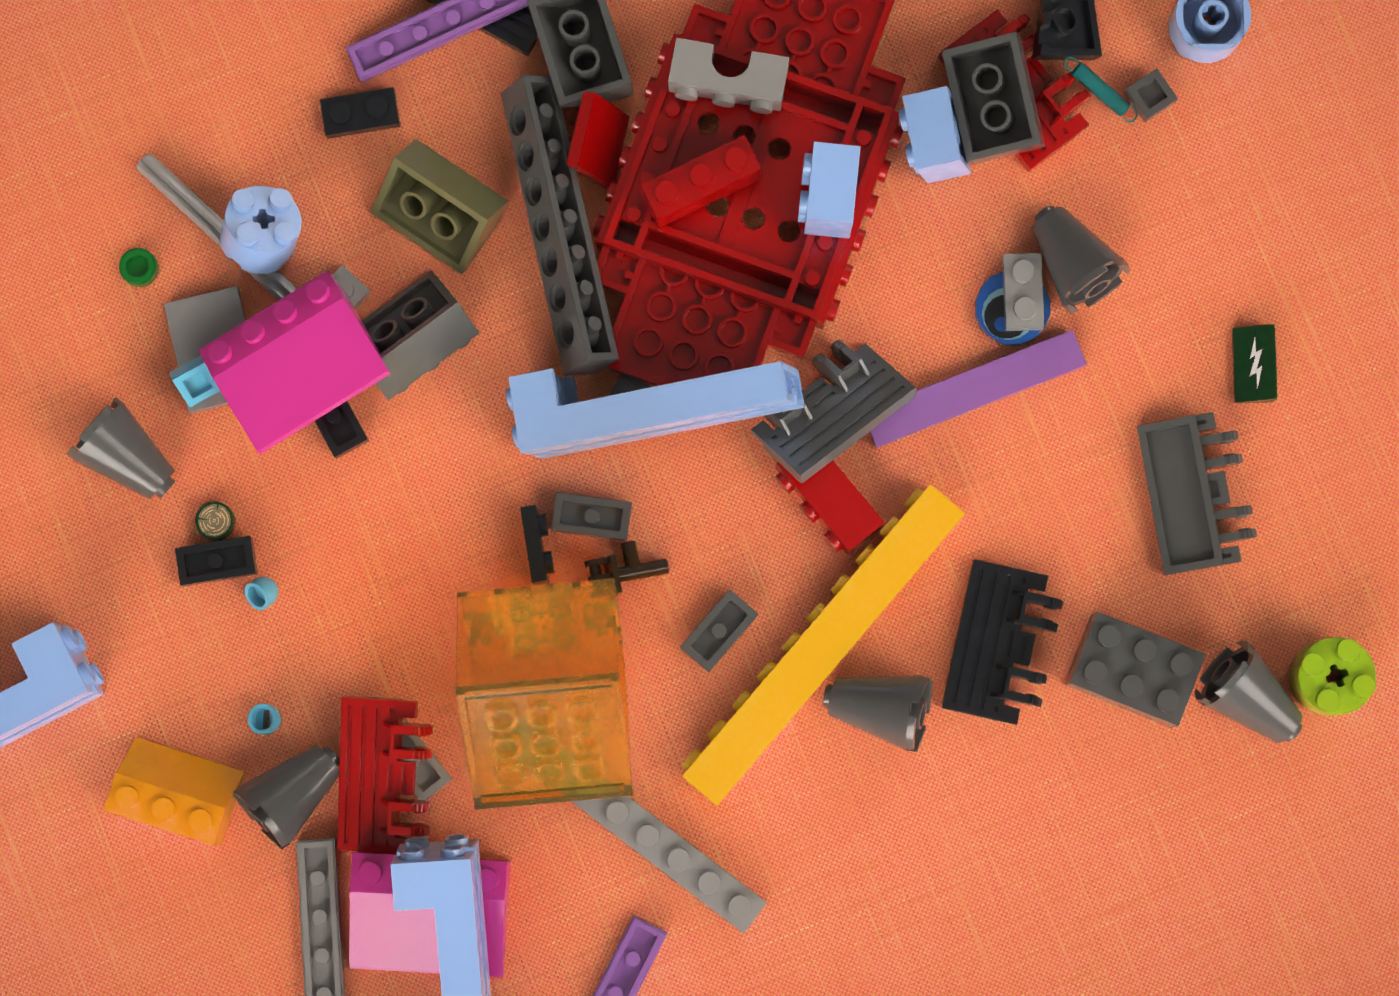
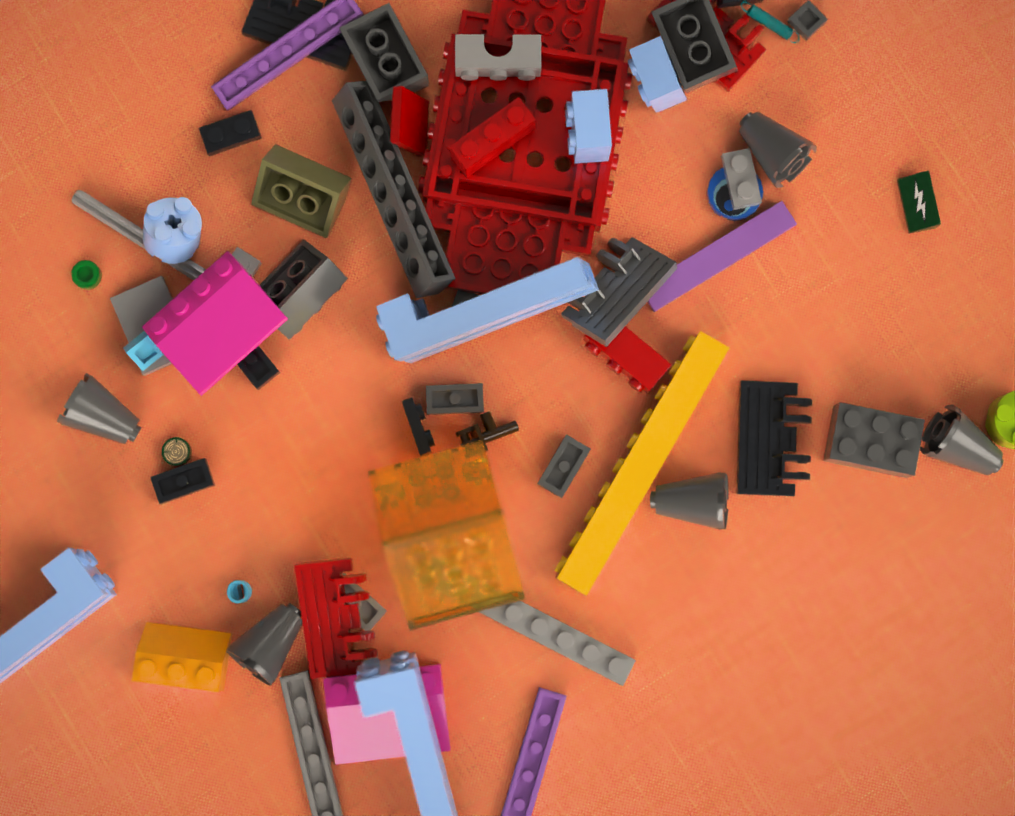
camera: 15 degrees left, 0 degrees up
(261, 592) = (220, 498): medium azure hinge -> none
(1186, 494) = (887, 305): dark grey hinge -> none

